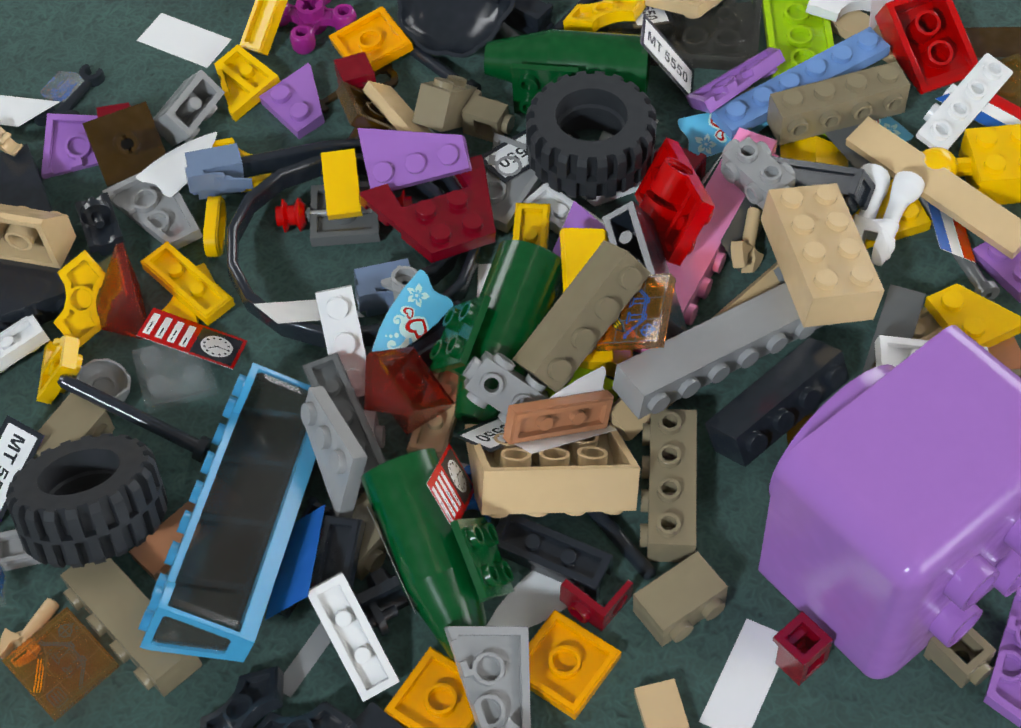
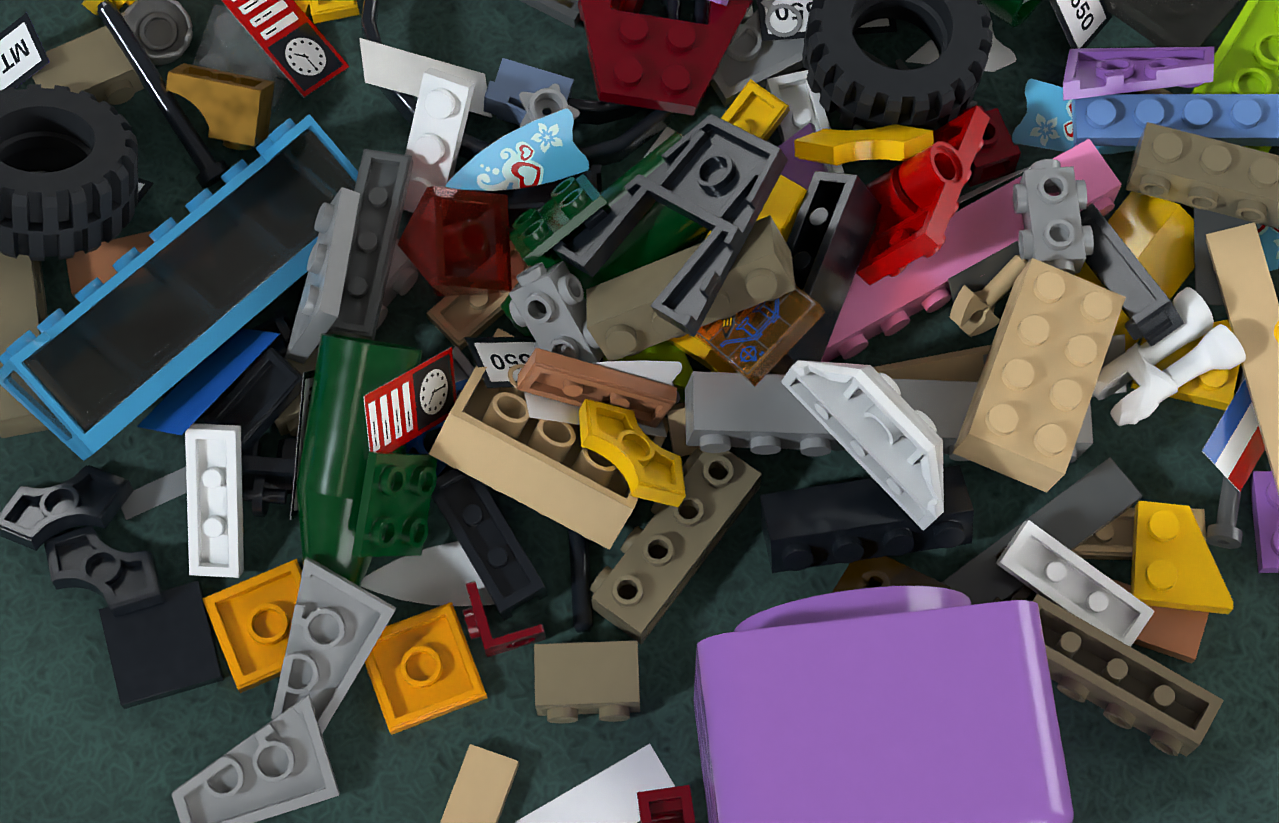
camera: 30 degrees right, 15 degrees up
(189, 396) = (231, 103): none -> pearl gold arch
(545, 243) = (709, 176): none -> black wing
(617, 191) = (845, 146): none -> yellow tile
(628, 443) = (648, 468): none -> yellow tile
(757, 331) = (877, 430): none -> white wedge

